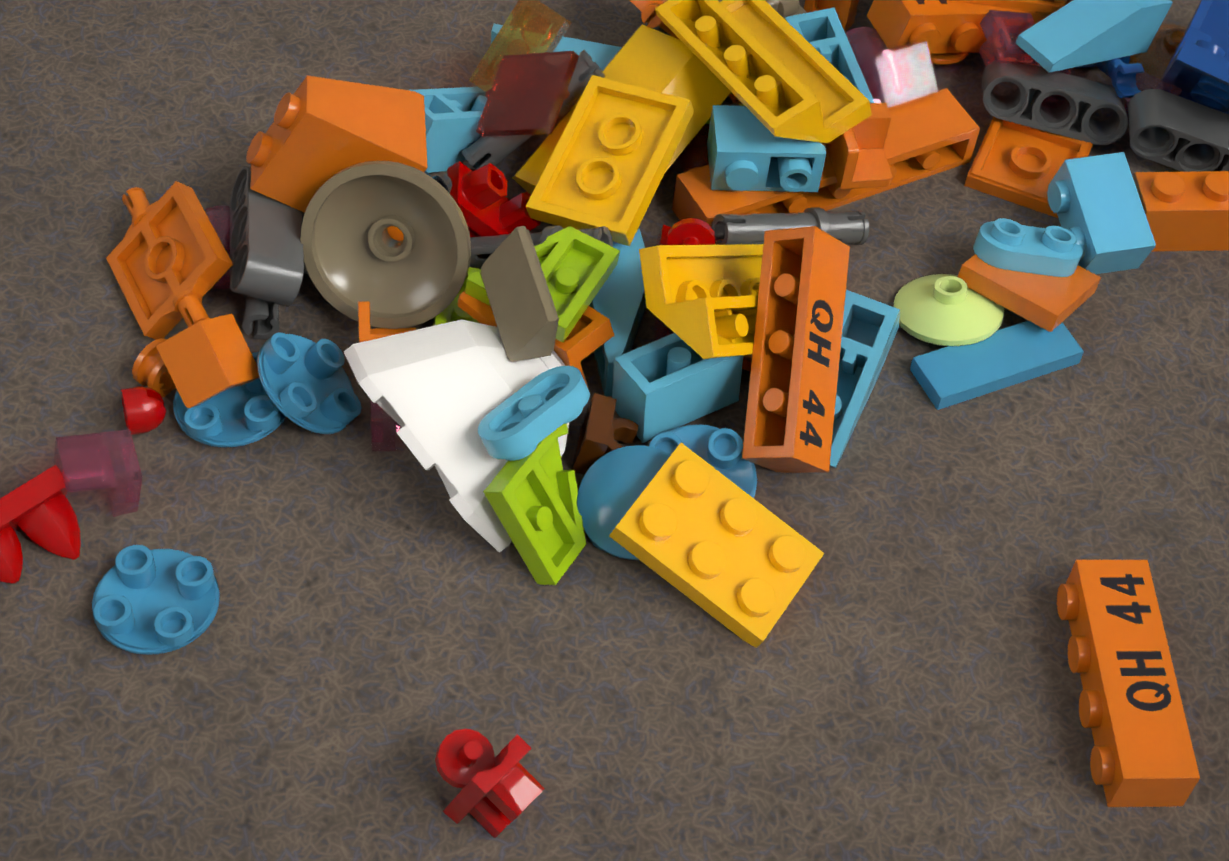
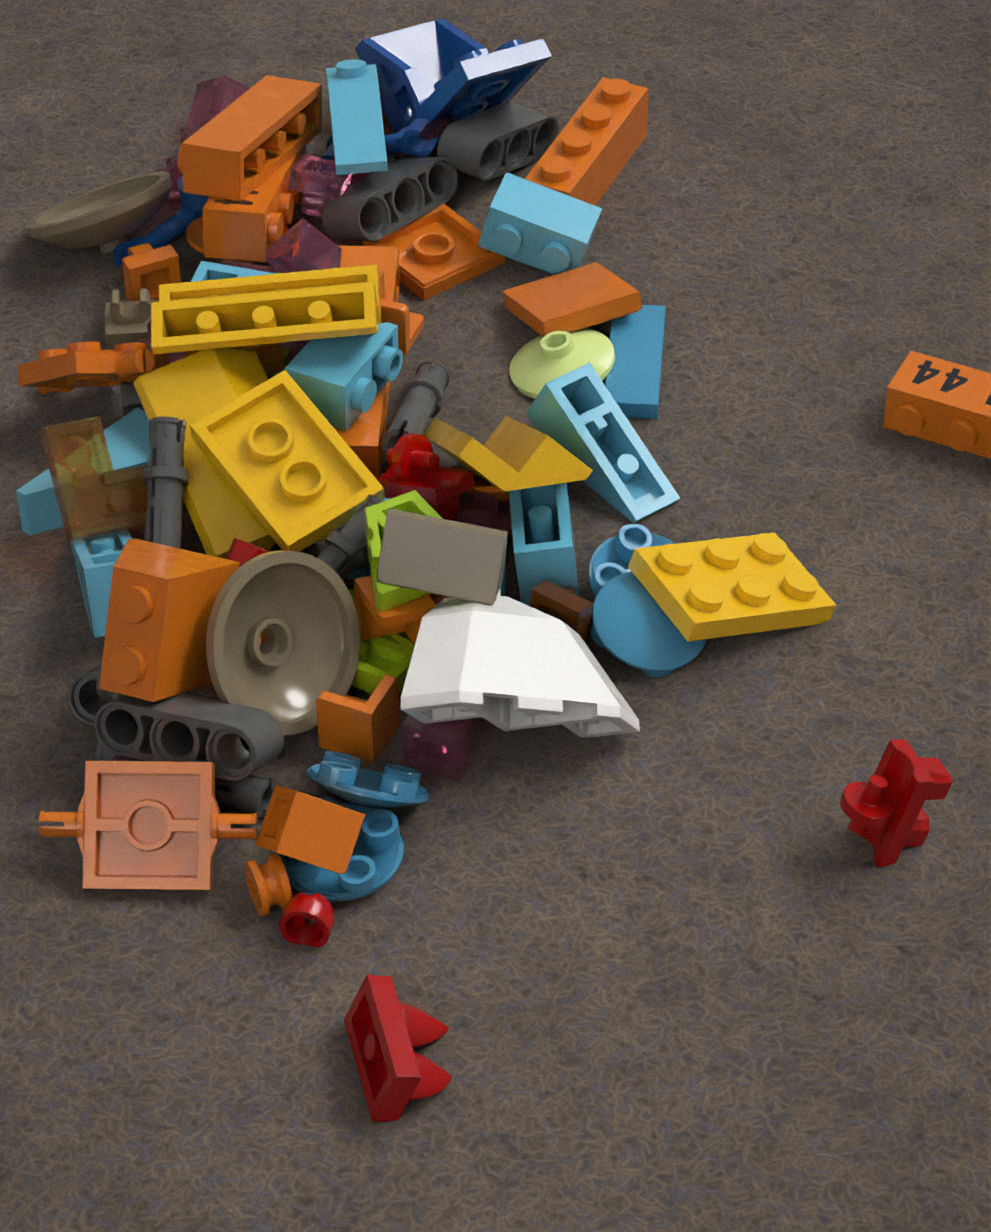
camera: 55 degrees left, 10 degrees down
(100, 463) = (381, 948): clear pink panel -> none
(155, 600) = (545, 976): dark azure dish -> none
(527, 94) = (158, 485): clear red piece -> none
(534, 413) = (572, 615): medium azure plate -> none
(540, 509) = (626, 668): lime wing -> none
(796, 351) = (589, 432): orange brick -> none
(1028, 248) = (548, 280): medium azure plate -> none

